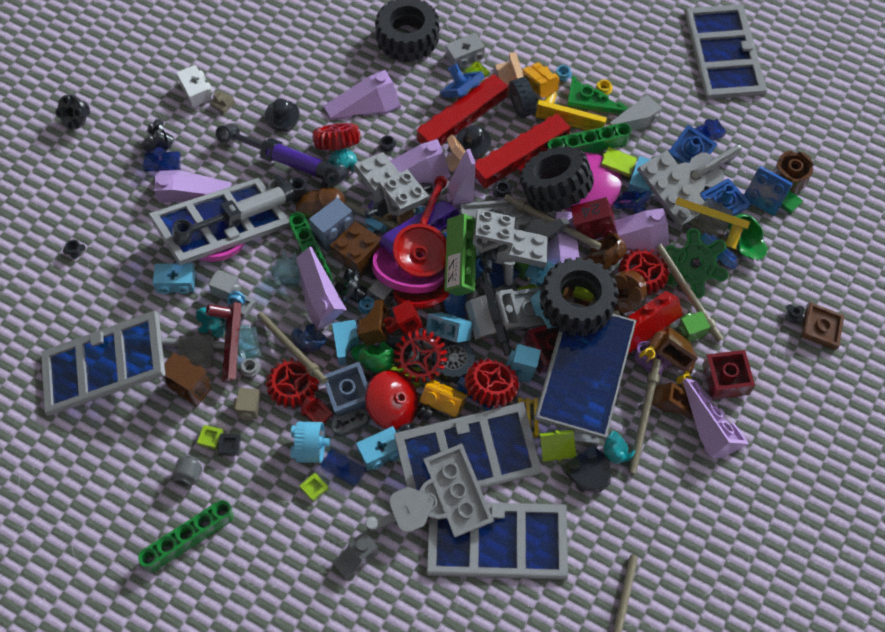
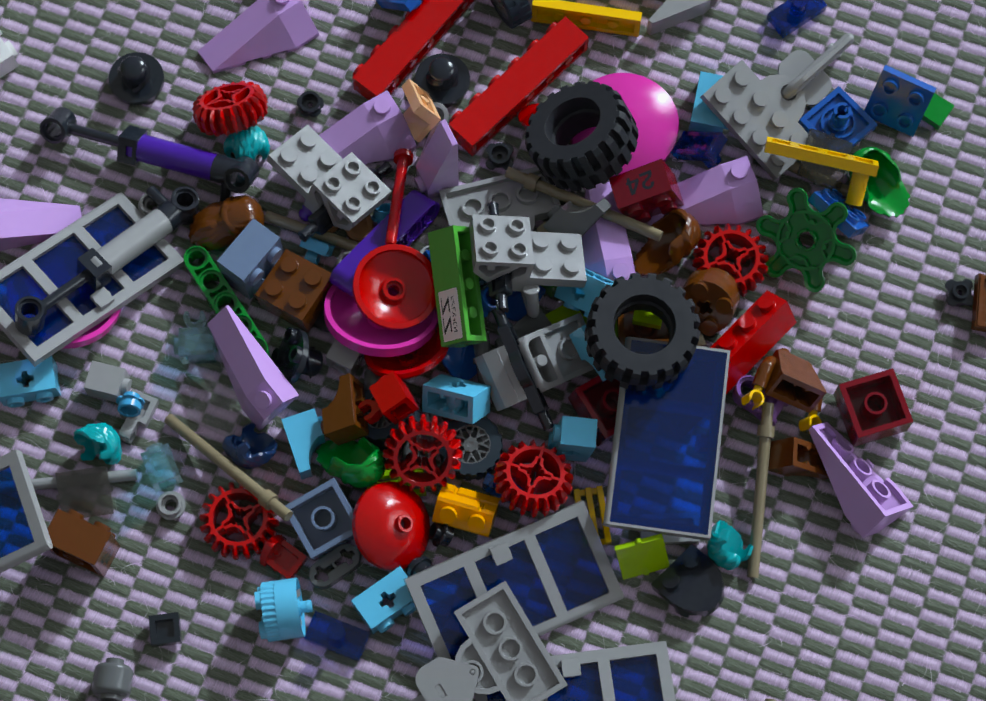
camera: 10 degrees left, 10 degrees up
(209, 437) = (134, 621): lime tile -> none
(222, 102) = (37, 69): dark tan tile -> none
(232, 315) = (135, 460): dark red piece -> none
(247, 403) = (178, 563): dark tan brick -> none
(314, 487) = (300, 672): lime tile -> none
(366, 301) = (332, 384): dark azure plate -> none
(595, 139) = (627, 45): green beam -> none
(619, 161) = (670, 82): lime piece -> none
(688, 291) = (836, 329): dark tan bar -> none
(691, 144) = (775, 40): blue plate -> none
(693, 326) = (813, 338): bright green brick -> none
(795, 168) = (935, 59): reddish brown brick -> none

